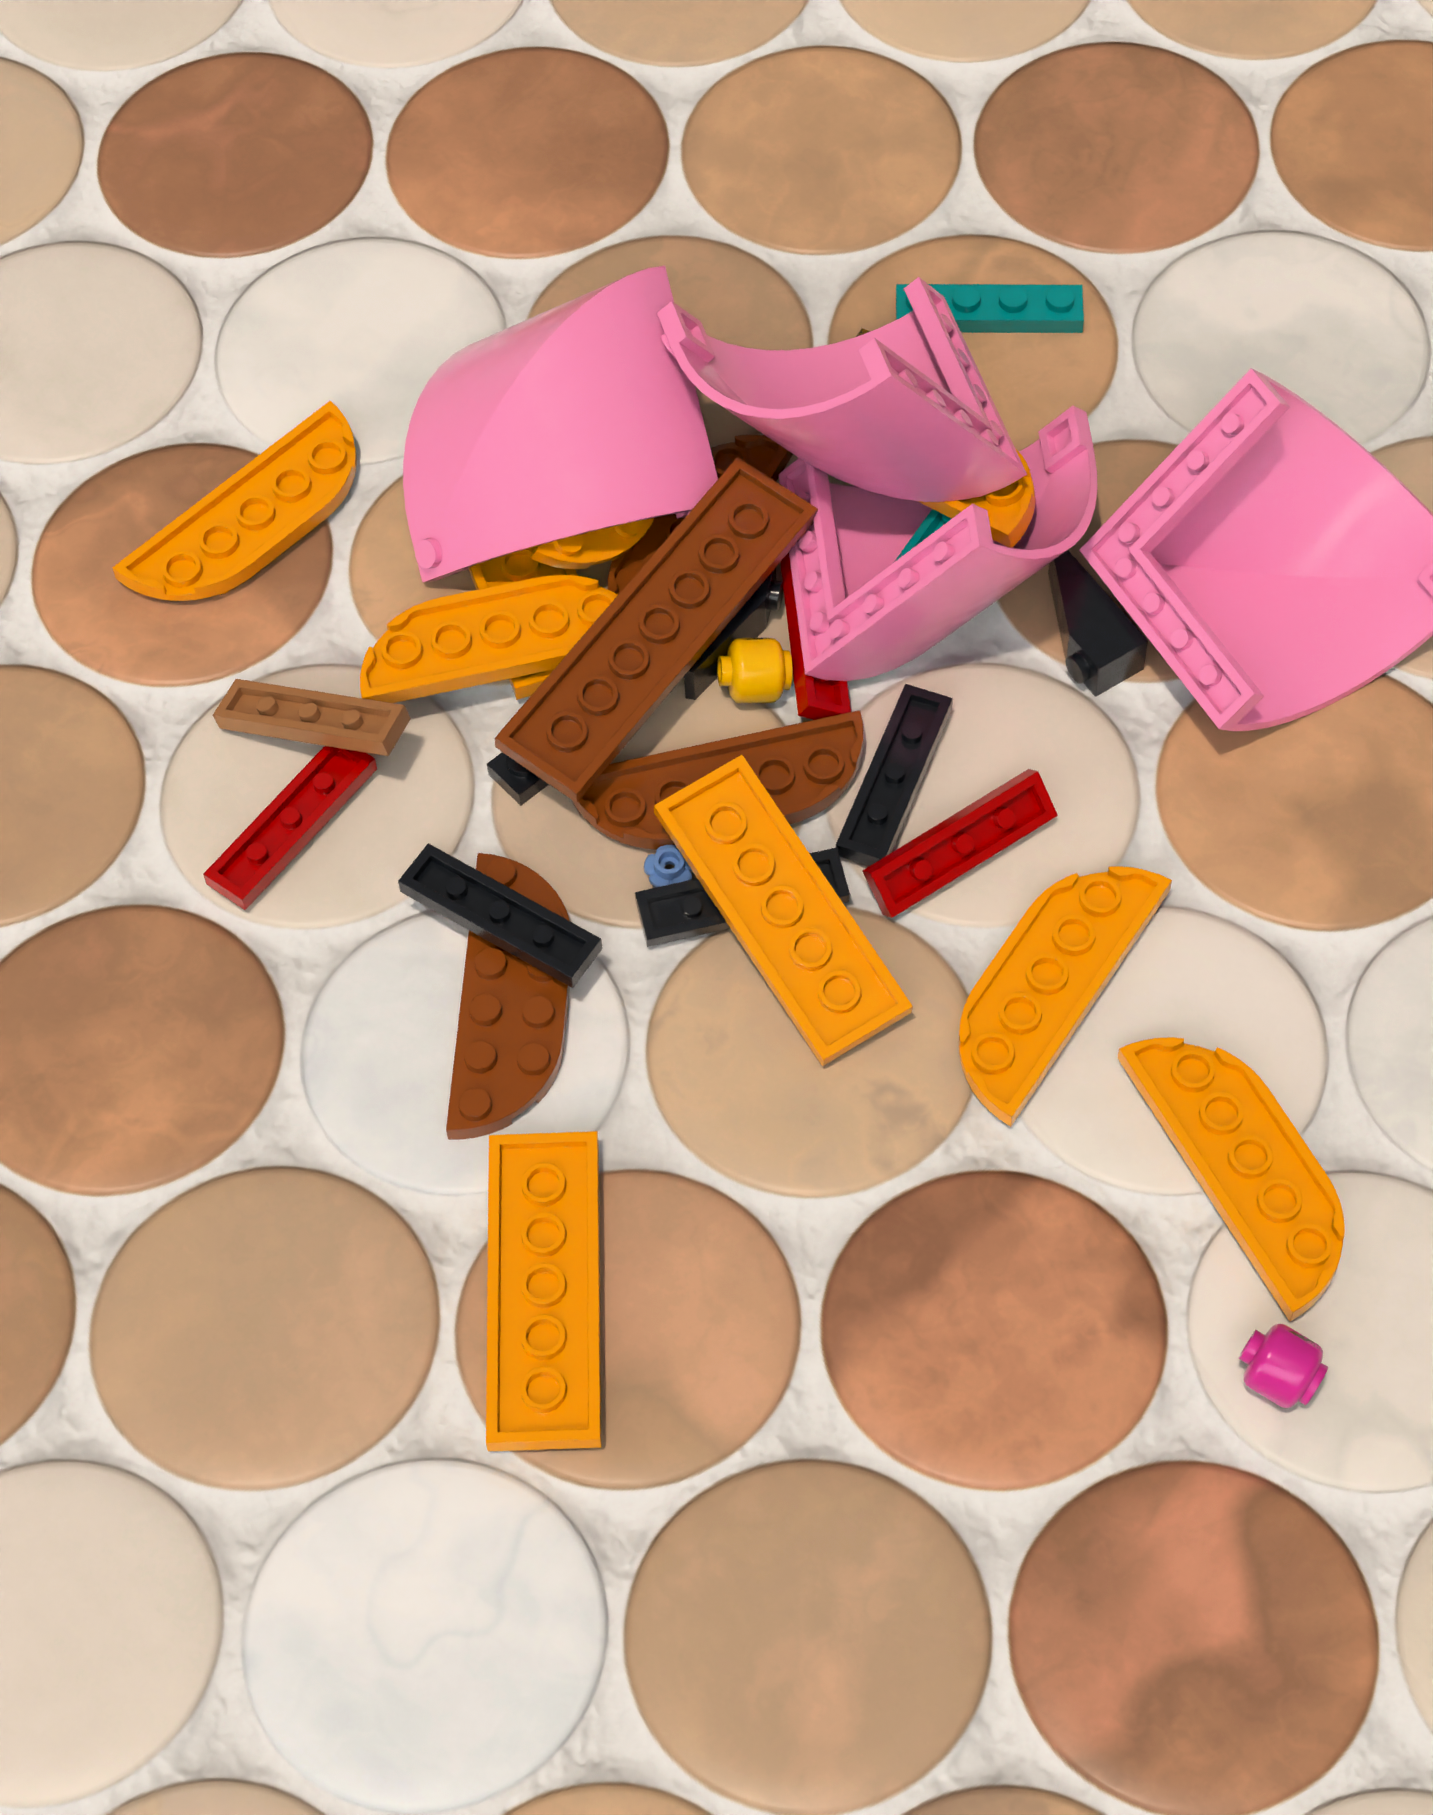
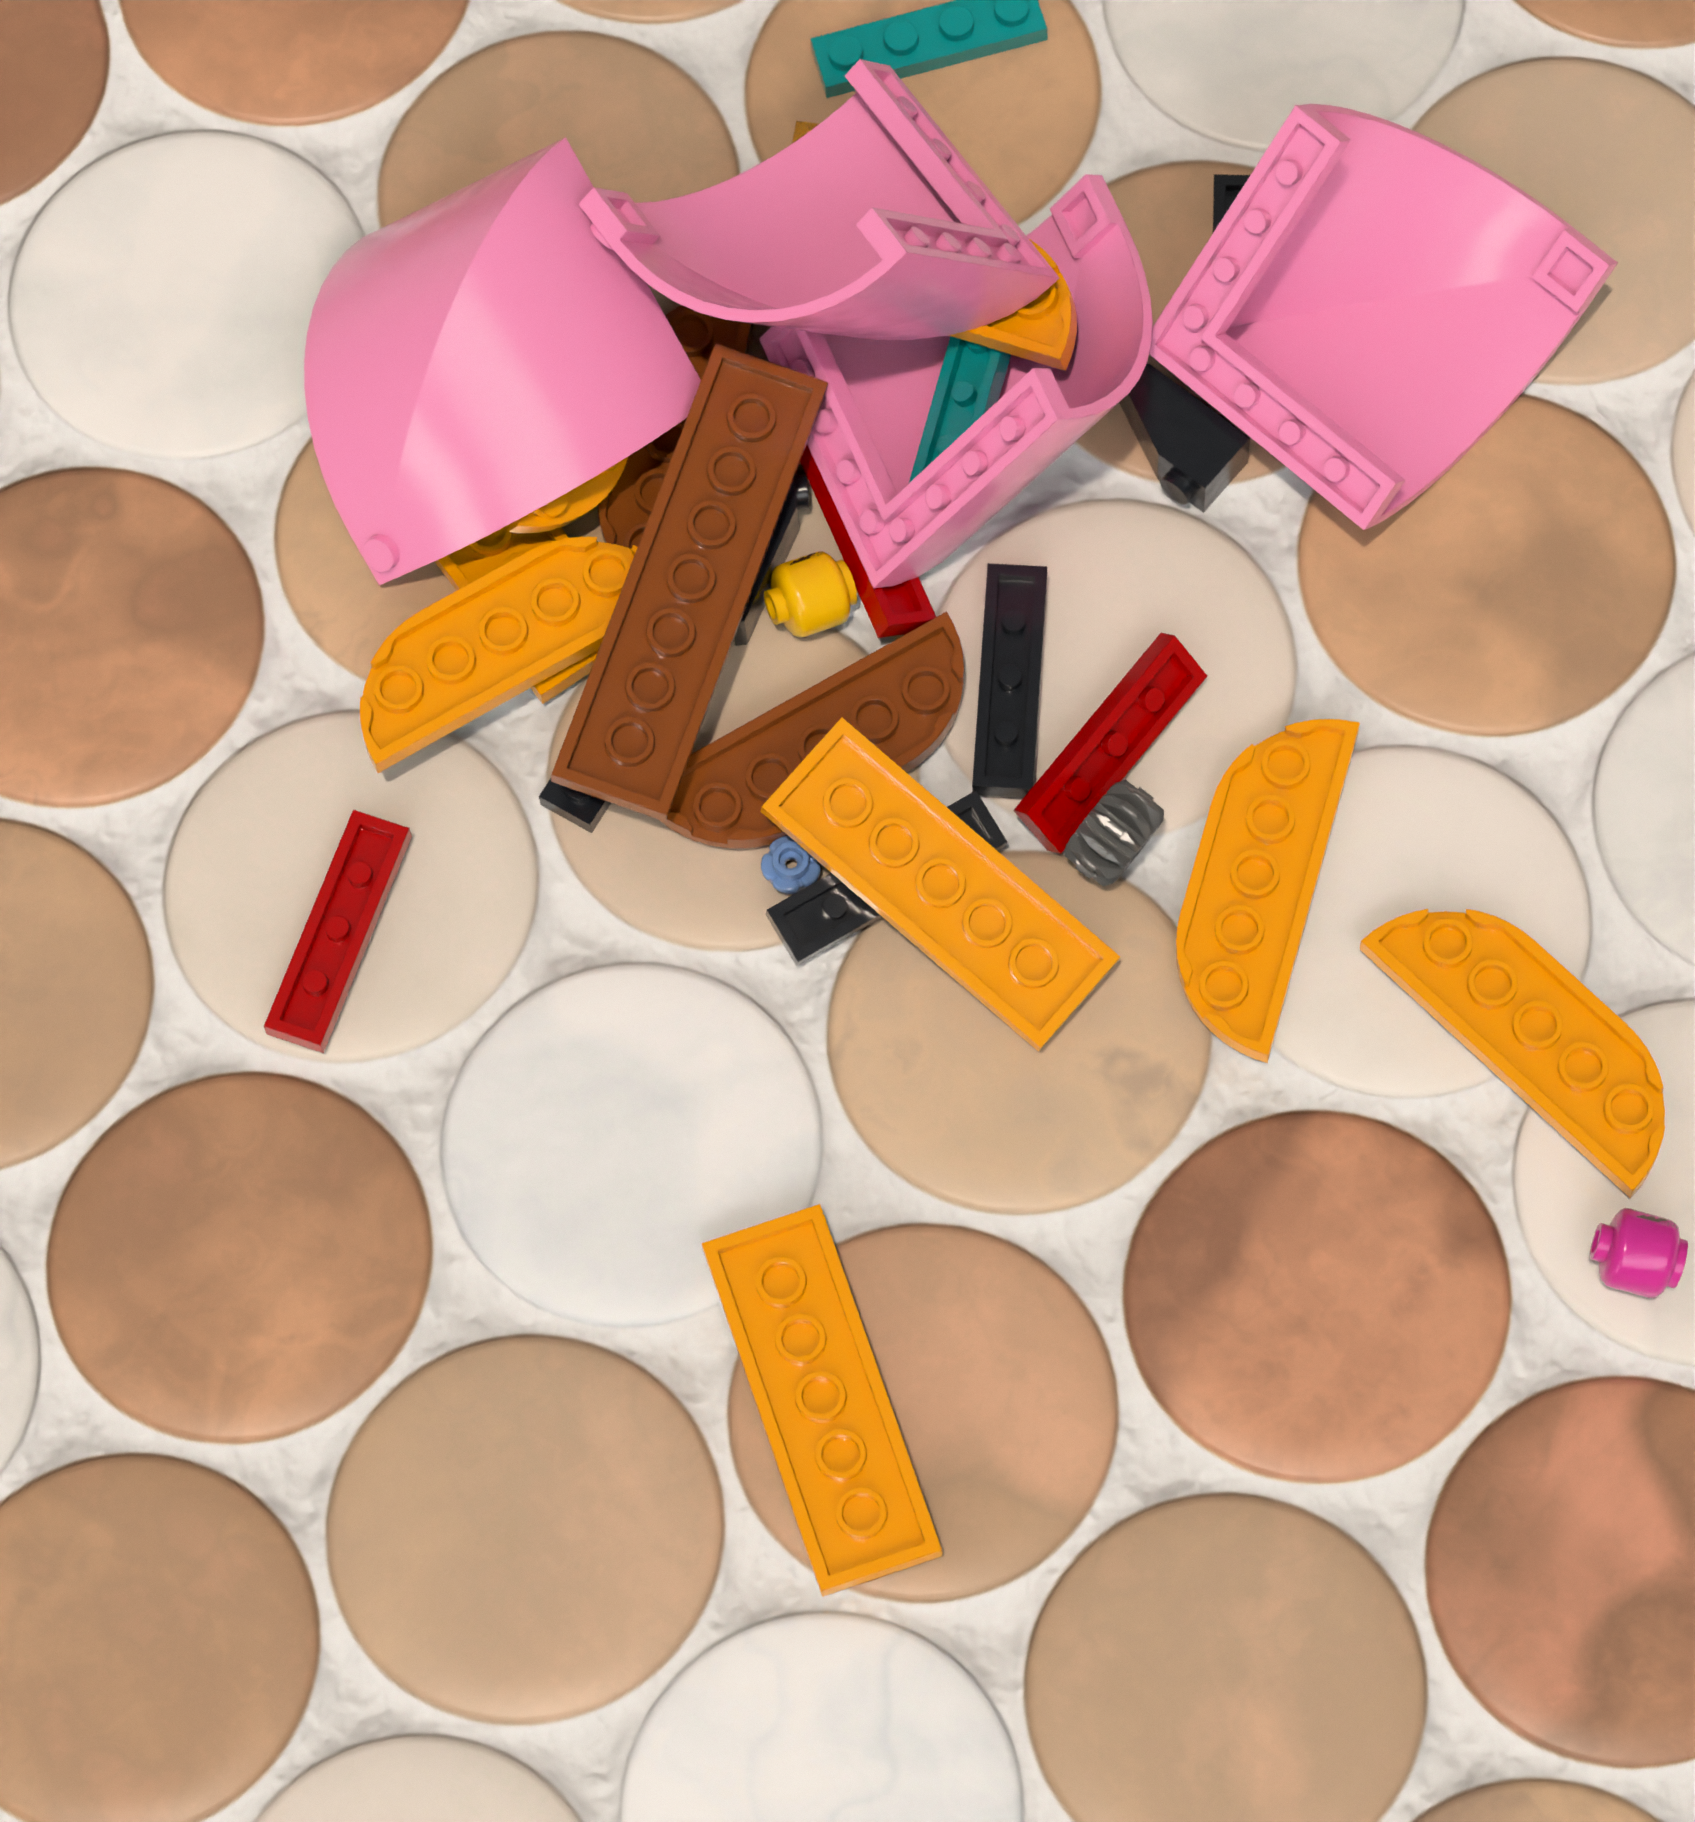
camera: 15 degrees left, 10 degrees up
(249, 515) = (144, 555): light orange plate -> none
(312, 717) = (320, 799): medium nougat plate -> none
(500, 915) = (626, 983): black plate -> none
(507, 1022) = (663, 1069): dark orange plate -> none
(939, 908) = (1114, 833): none -> dark grey gear

